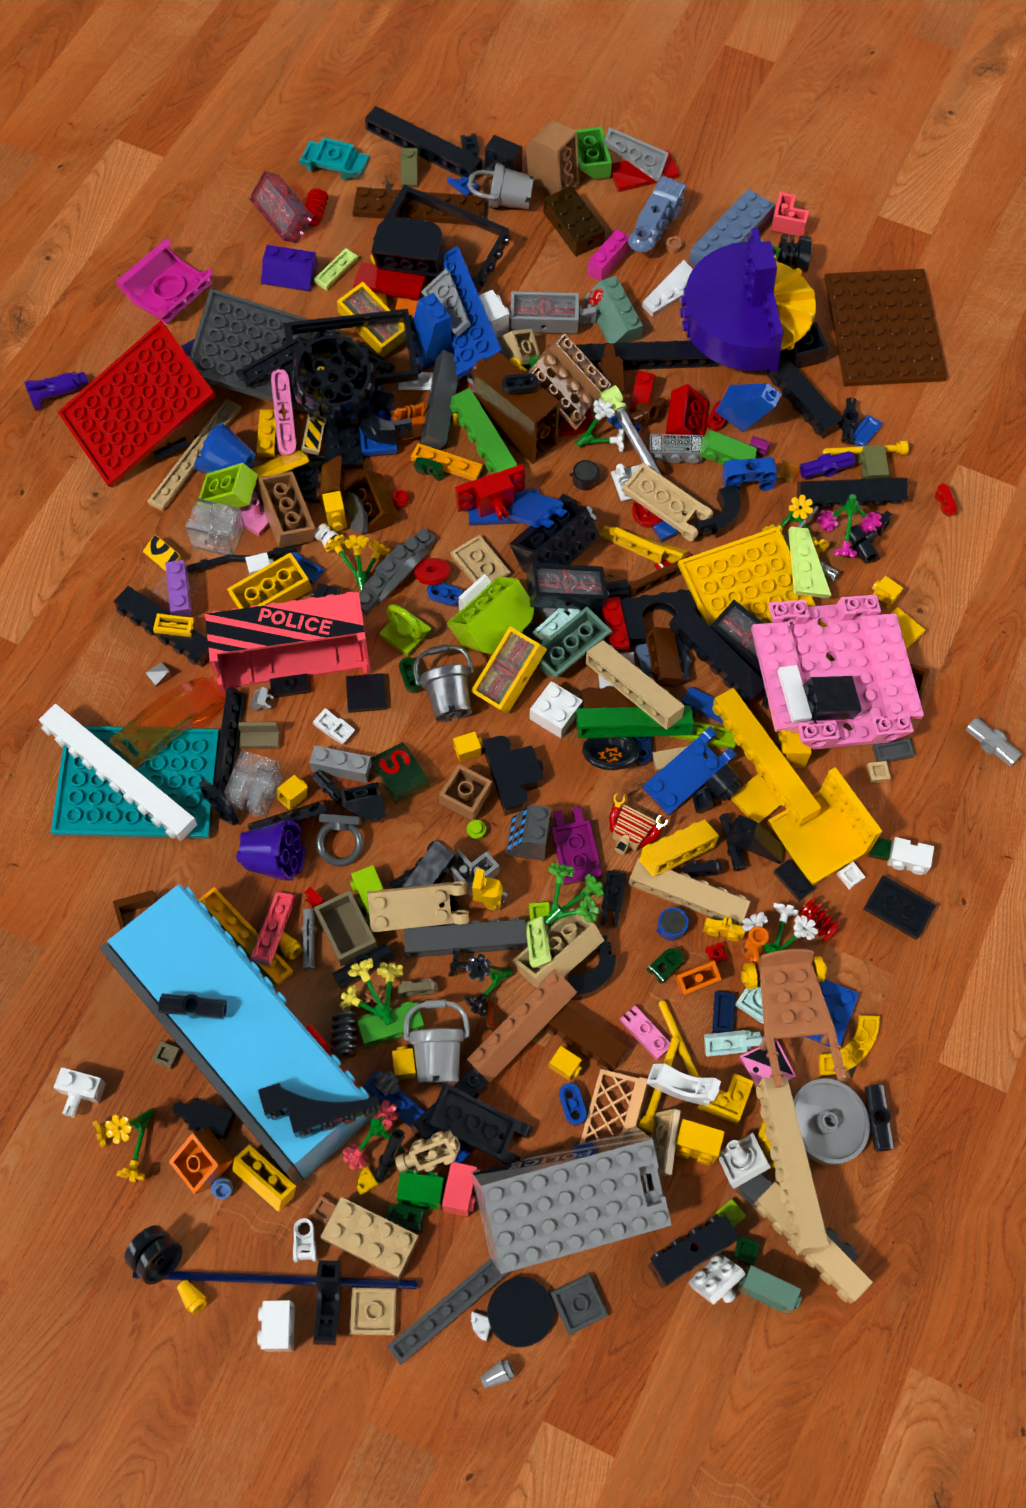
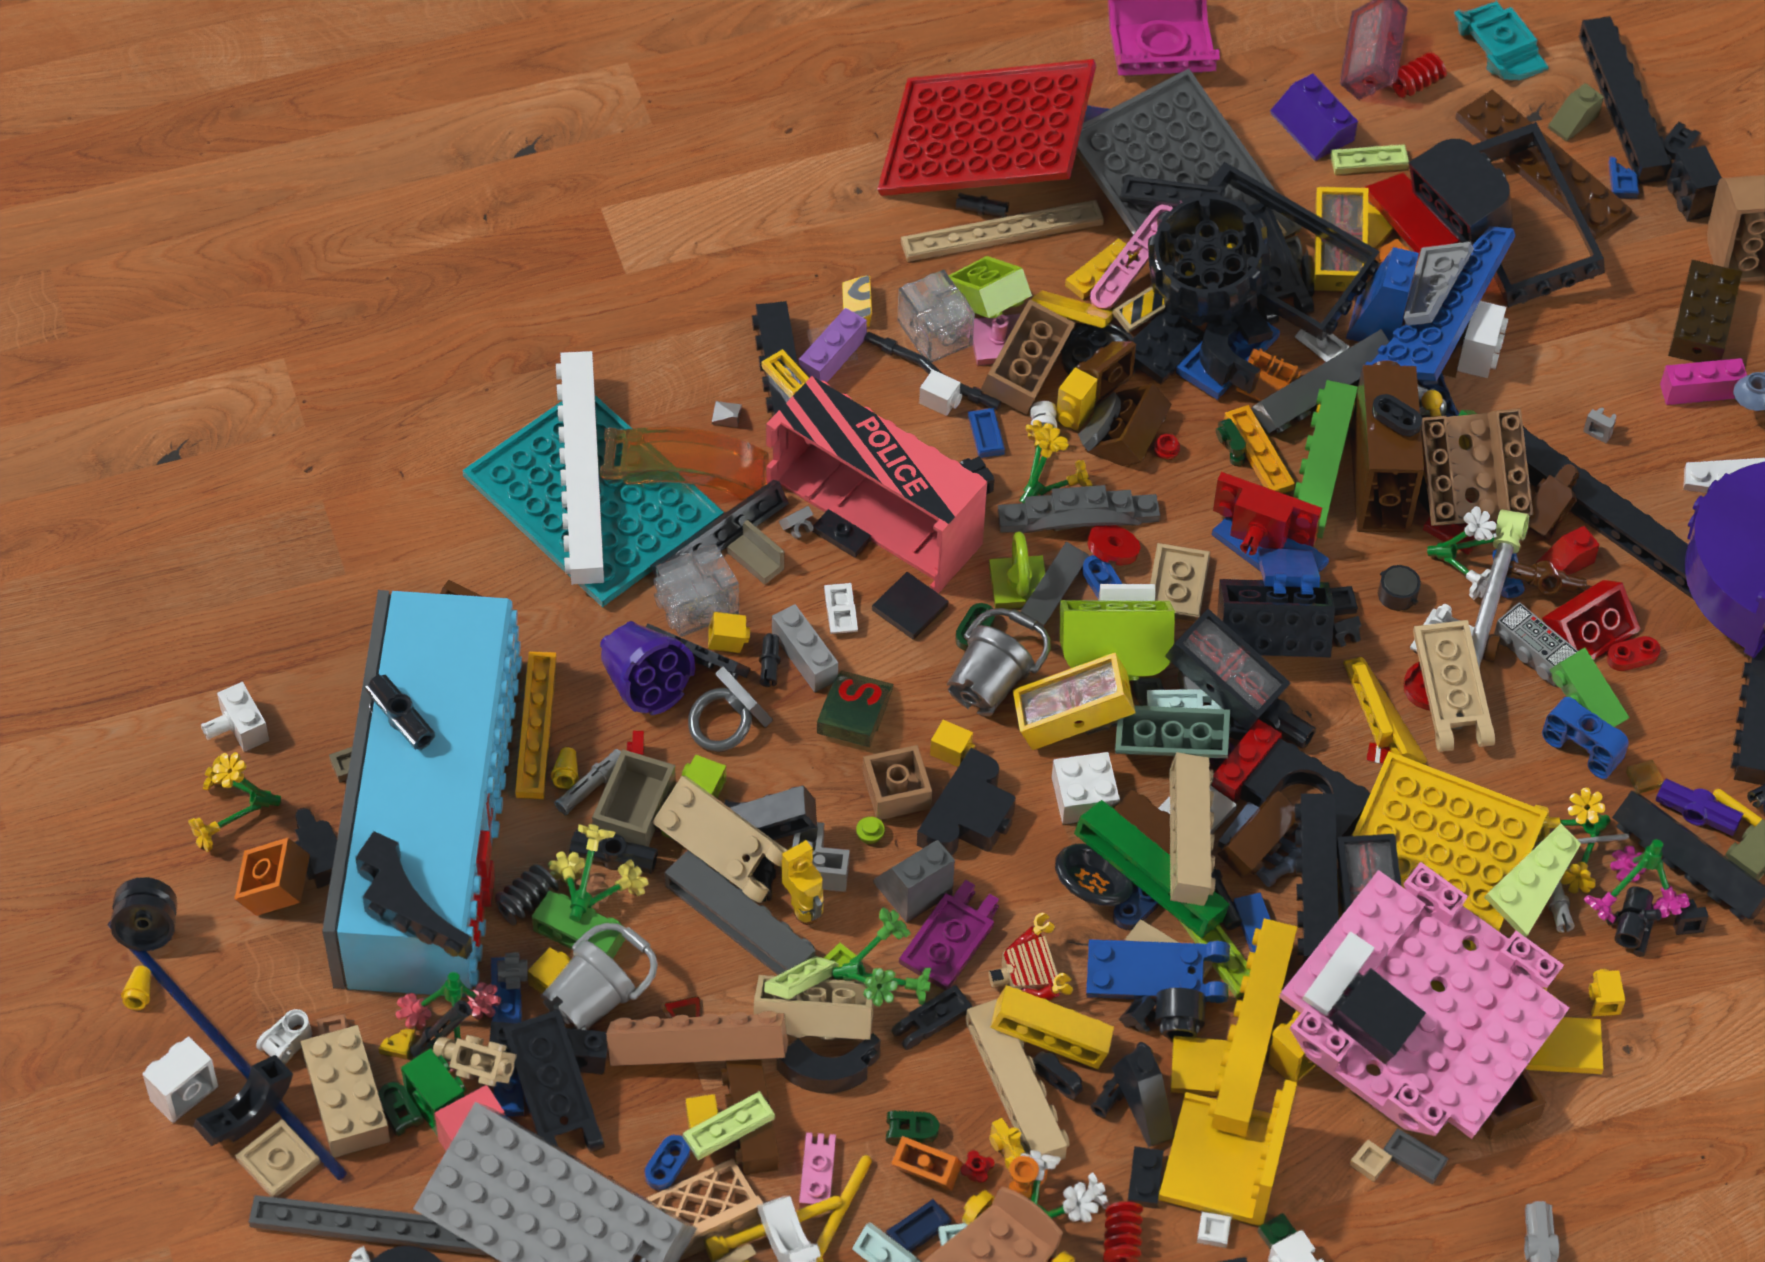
camera: 45 degrees right, 10 degrees down
(55, 386) = (933, 50): dark purple piece -> none
(219, 802) = (645, 578): black tile -> none
(222, 450) = (1027, 242): blue cone -> none
(222, 1188) = (266, 922): medium blue plate -> none
(264, 1178) = (309, 953): yellow brick -> none
(272, 584) = (934, 418): yellow brick -> none
(273, 928) = (567, 738): coral tile -> none
(364, 801) = (784, 700): black slope -> none
(410, 989) = (634, 914): dark tan plate -> none
(426, 617) = (1054, 583): none -> dark grey tile
(478, 969) = (708, 935): black plant -> none
(508, 187) = (1659, 215): light grey piece -> none
(519, 345) = (1473, 390): tan slope -> none
(544, 312) = (1549, 382): brick -> none
(587, 1055) = (728, 1125): none -> yellowish green tile
(614, 312) = (1636, 447): sand green slope -> none
(655, 578) = (1346, 753): reddish brown tile -> none
(664, 531) = (1421, 718): blue tile -> none
(672, 924) = (964, 1096): piece -> none
(730, 503) = (1508, 762): black arch -> none
(747, 403) = (1665, 660): blue slope -> none
(761, 445) = (1641, 721): magenta piece -> none

